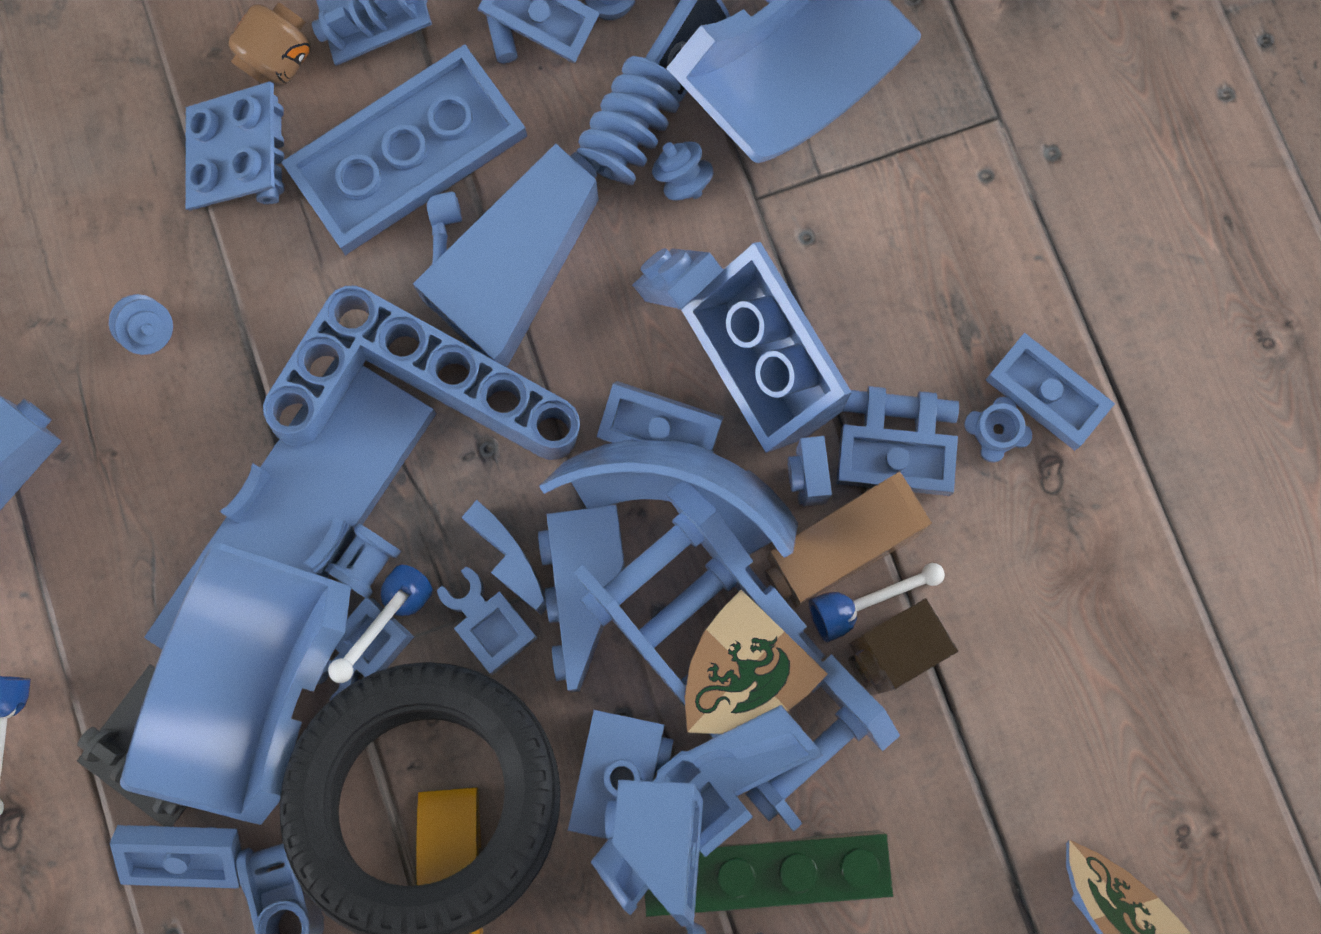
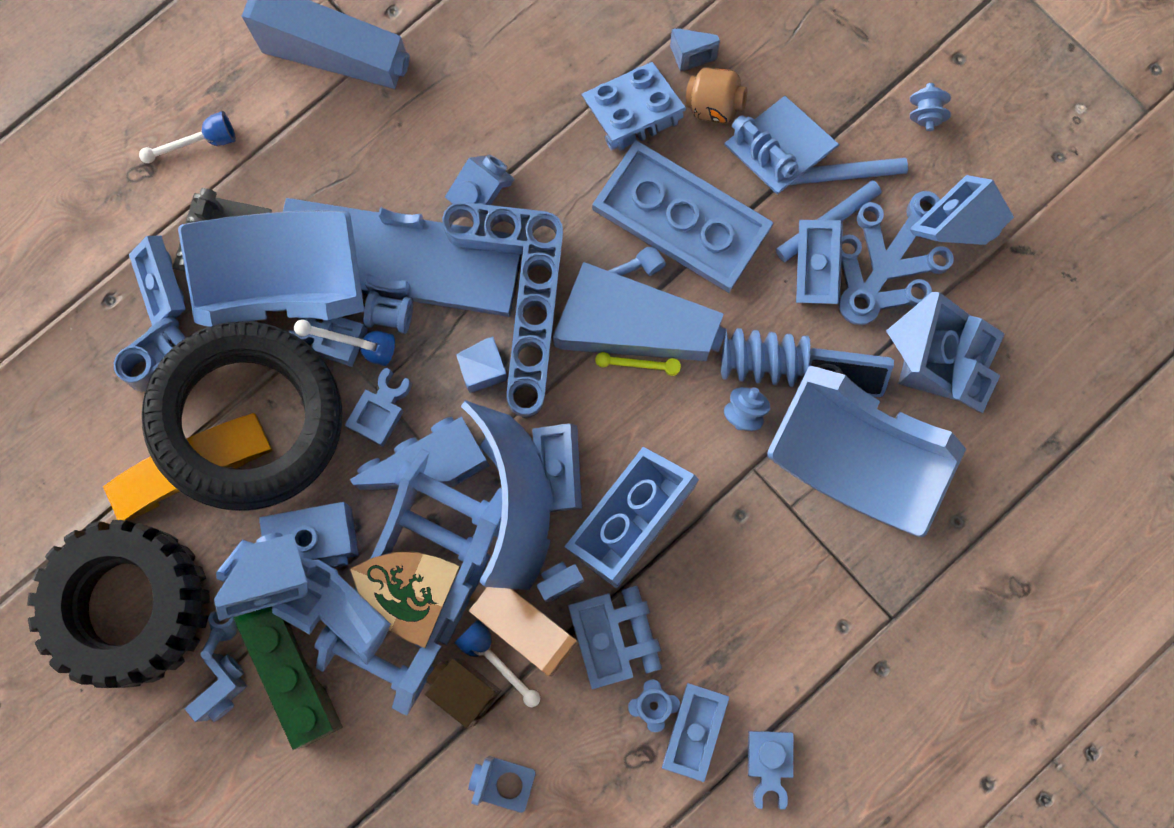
camera: 70 degrees right, 0 degrees up
(140, 324) = (487, 101): medium blue wheel -> none
(193, 47) = (693, 48): none -> medium blue slope
(243, 377) = (479, 181): none -> medium blue bracket
(485, 468) = (481, 365): none -> slope
(515, 567) = (420, 414): medium blue slope -> none
(589, 243) = (671, 366): none -> neon yellow hinge
(676, 276) = (662, 434): medium blue plate -> none
(1014, 670) = (485, 779): none -> medium blue bracket
(1113, 320) = (770, 759): none -> medium blue plate

